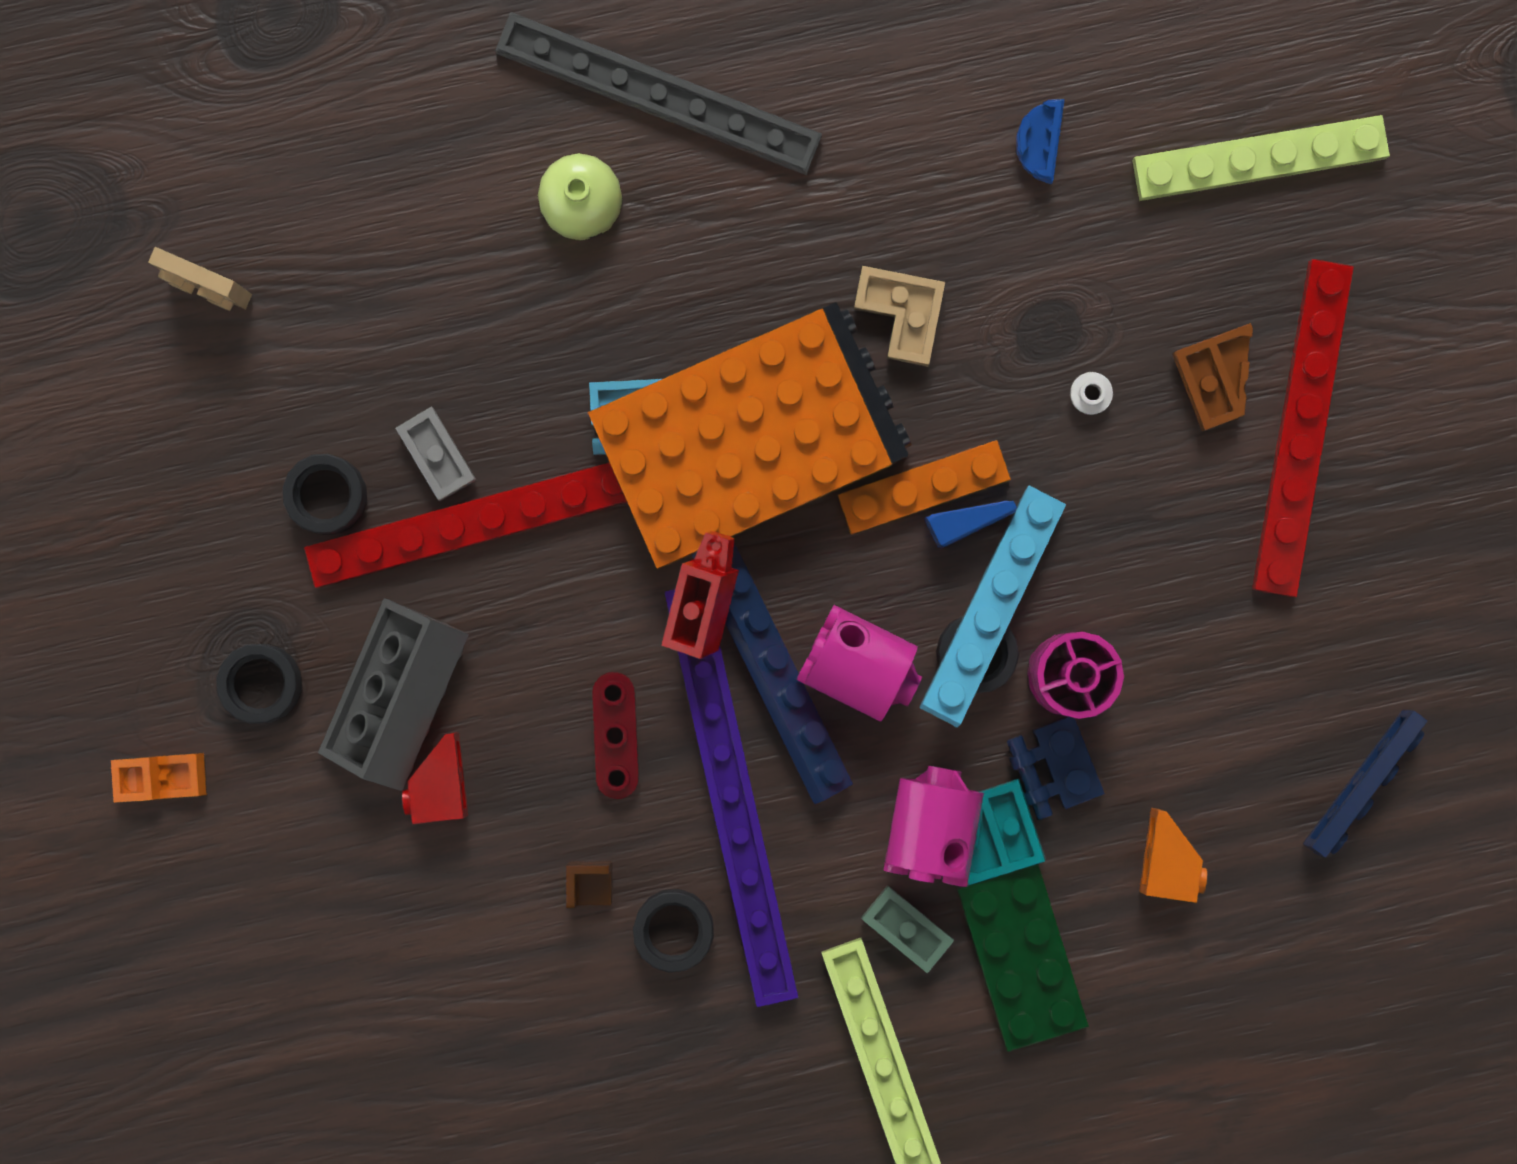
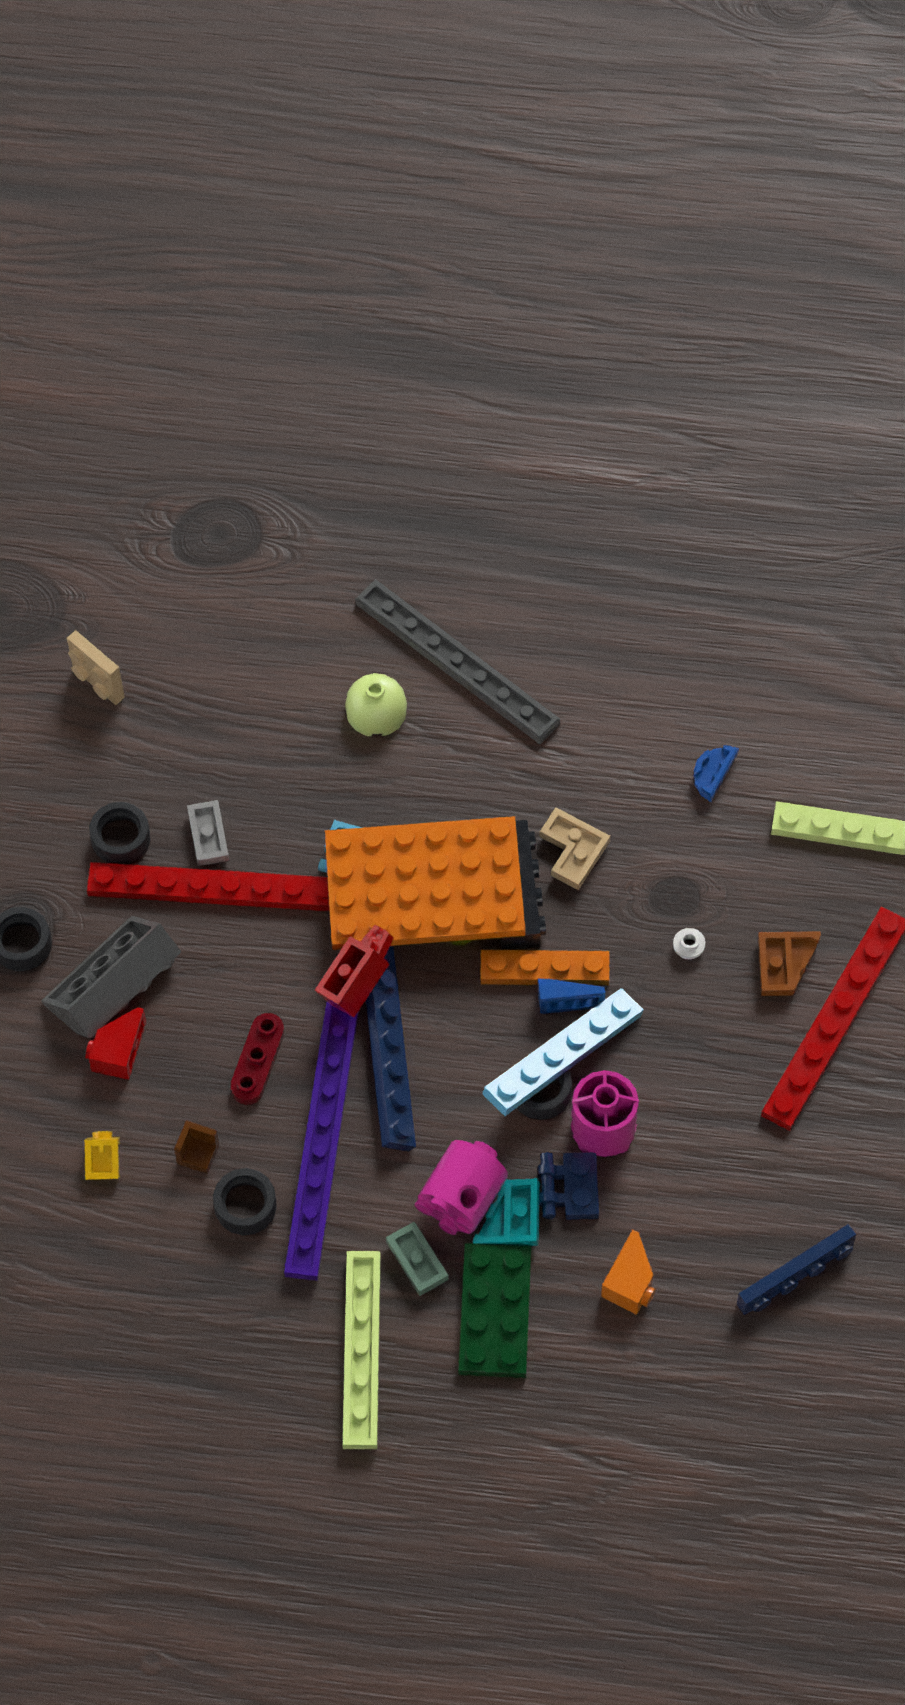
camera: 25 degrees right, 25 degrees down
(477, 933) = (102, 1156): none -> yellow bracket
(861, 665) = (451, 1059): dark pink cylinder -> none

